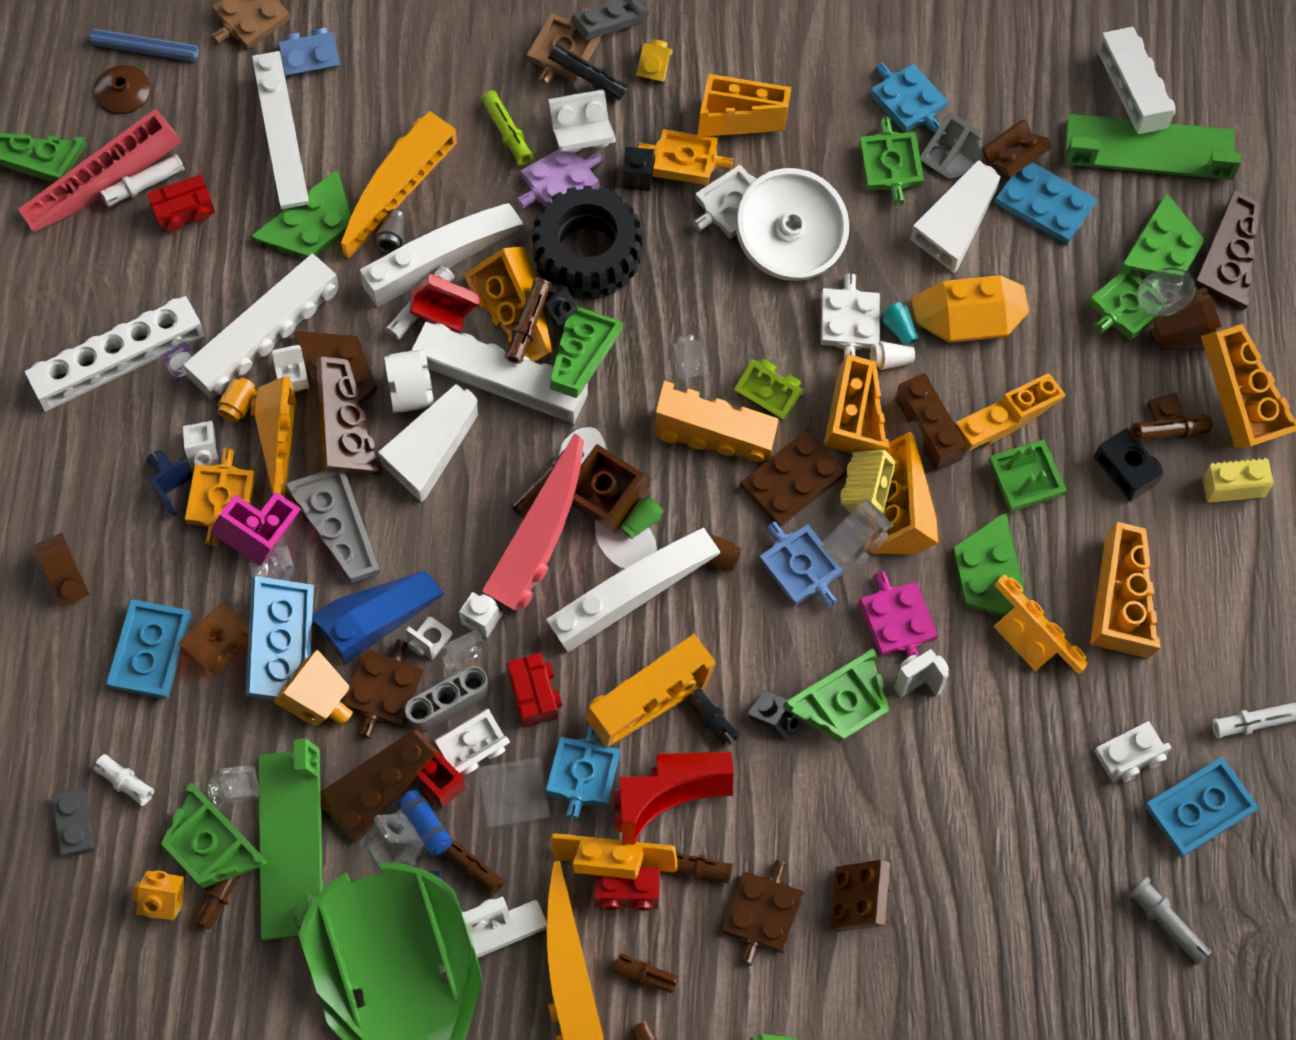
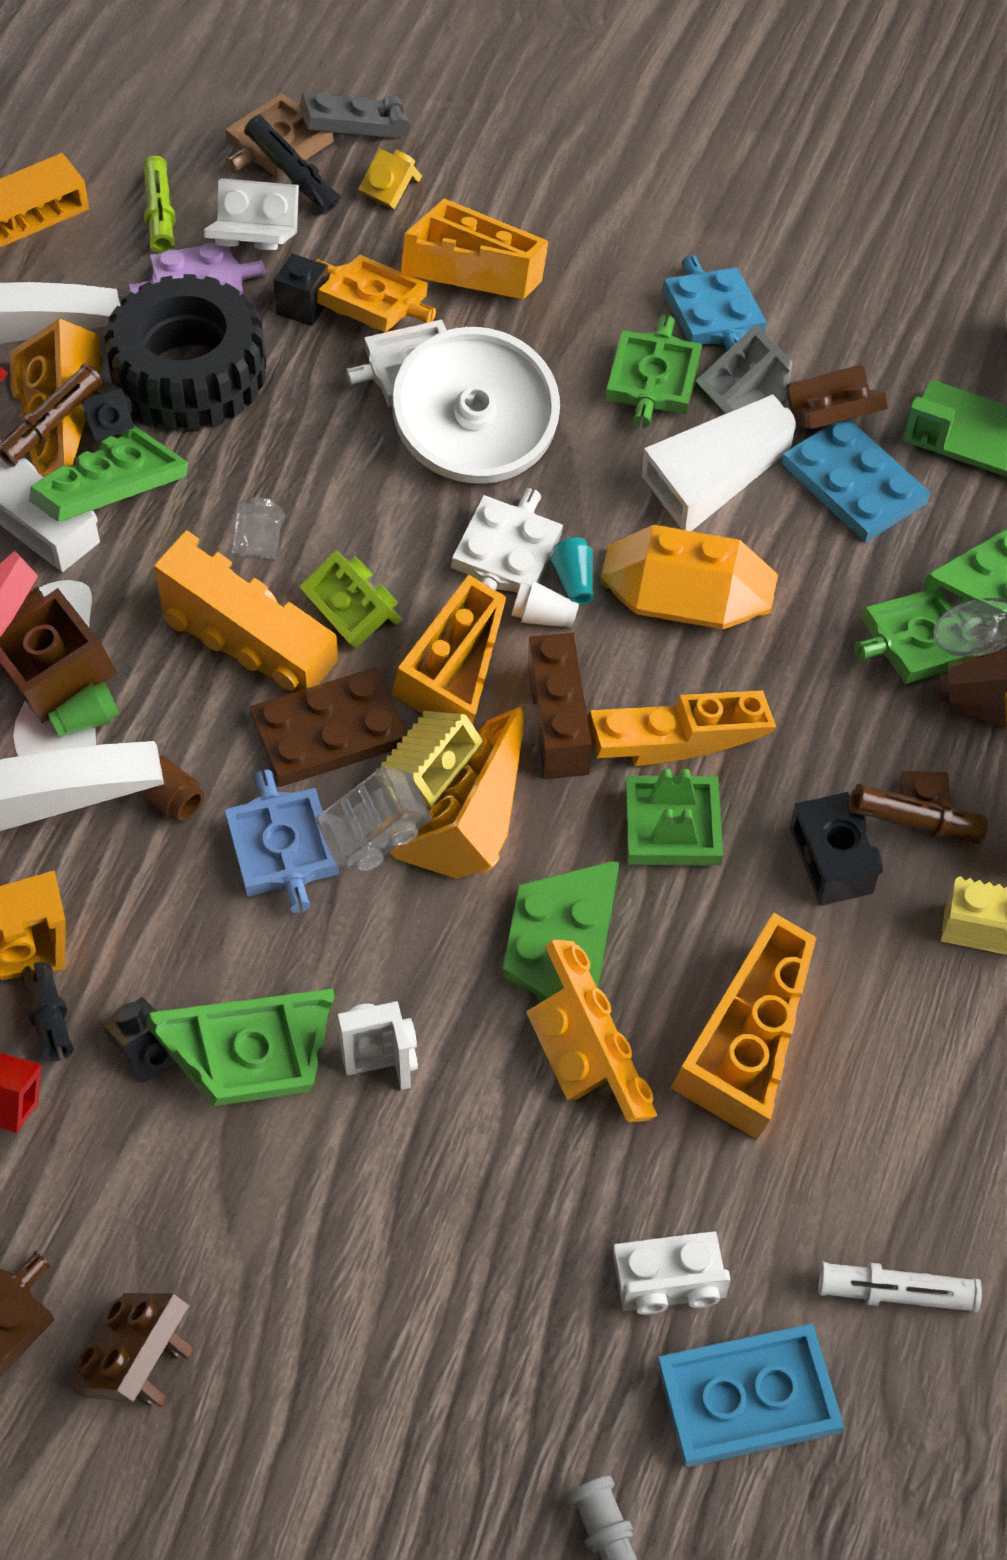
camera: 20 degrees right, 10 degrees down
(897, 618) = (391, 957): dark pink plate -> none

